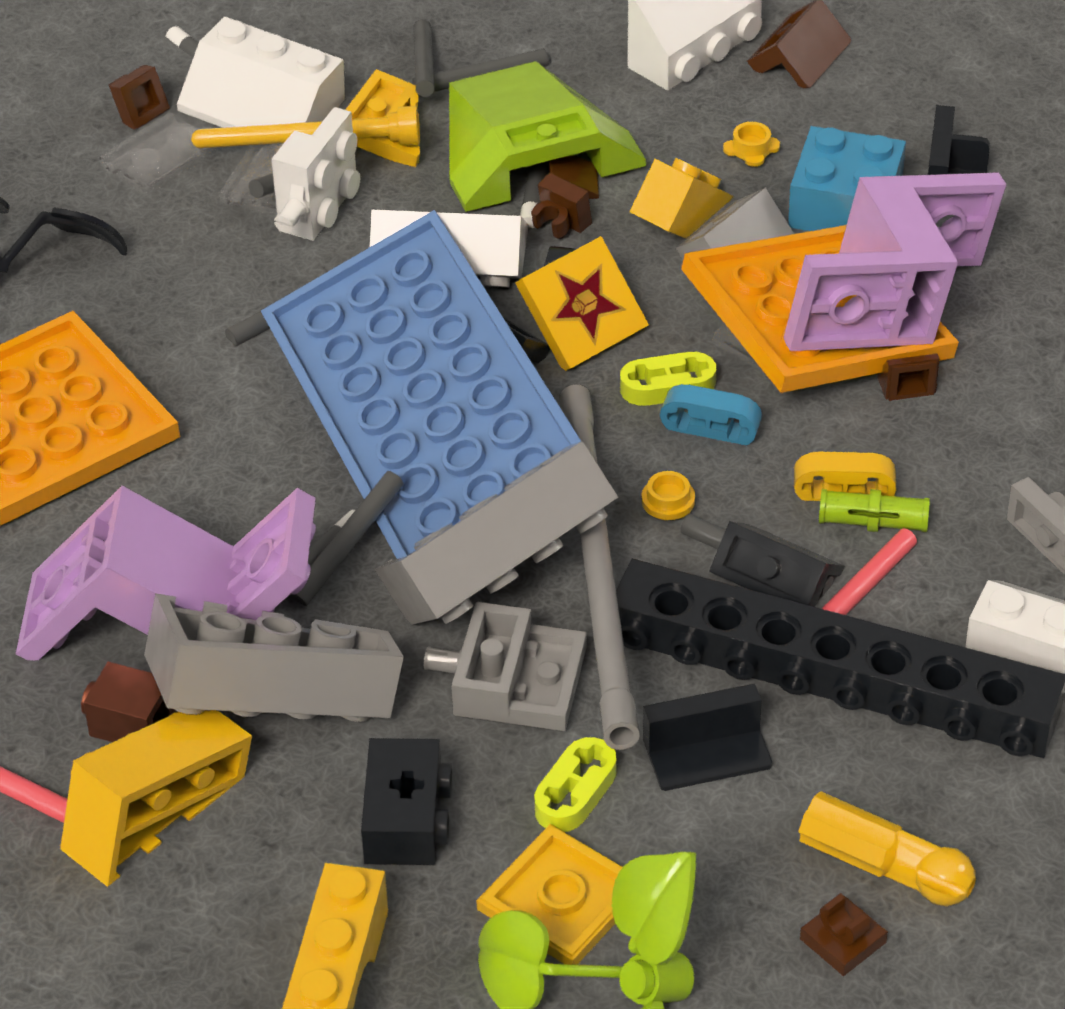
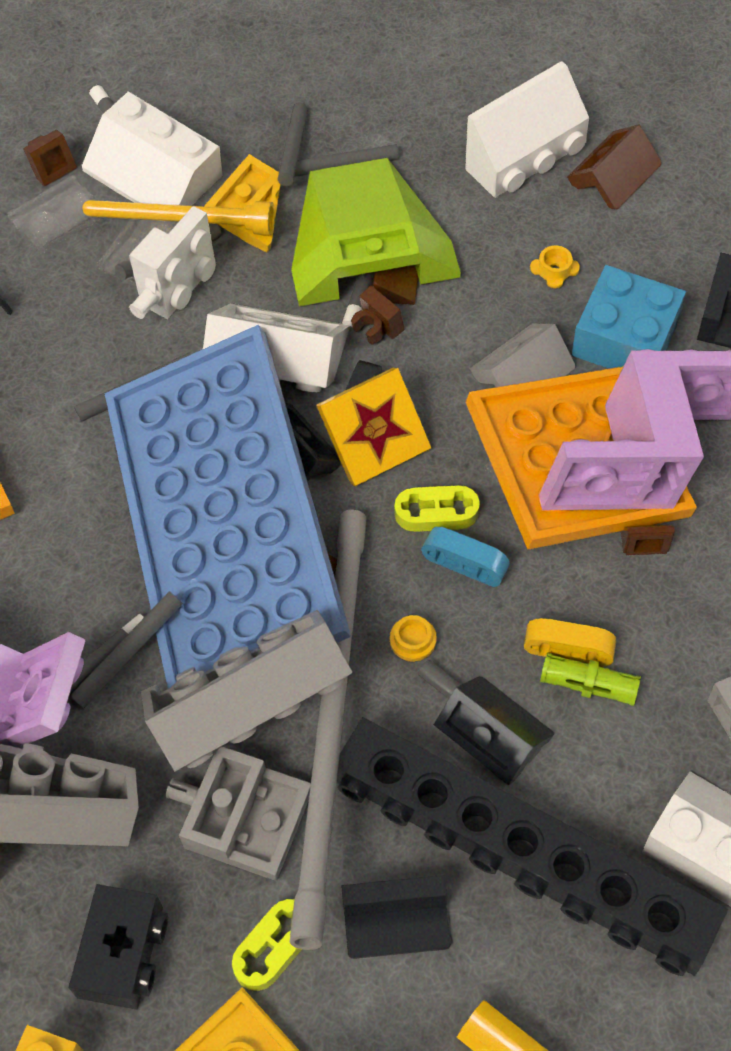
camera: 10 degrees right, 15 degrees up
(679, 197) = (480, 320): yellow slope -> none
(871, 573) = (567, 754): coral bar -> none

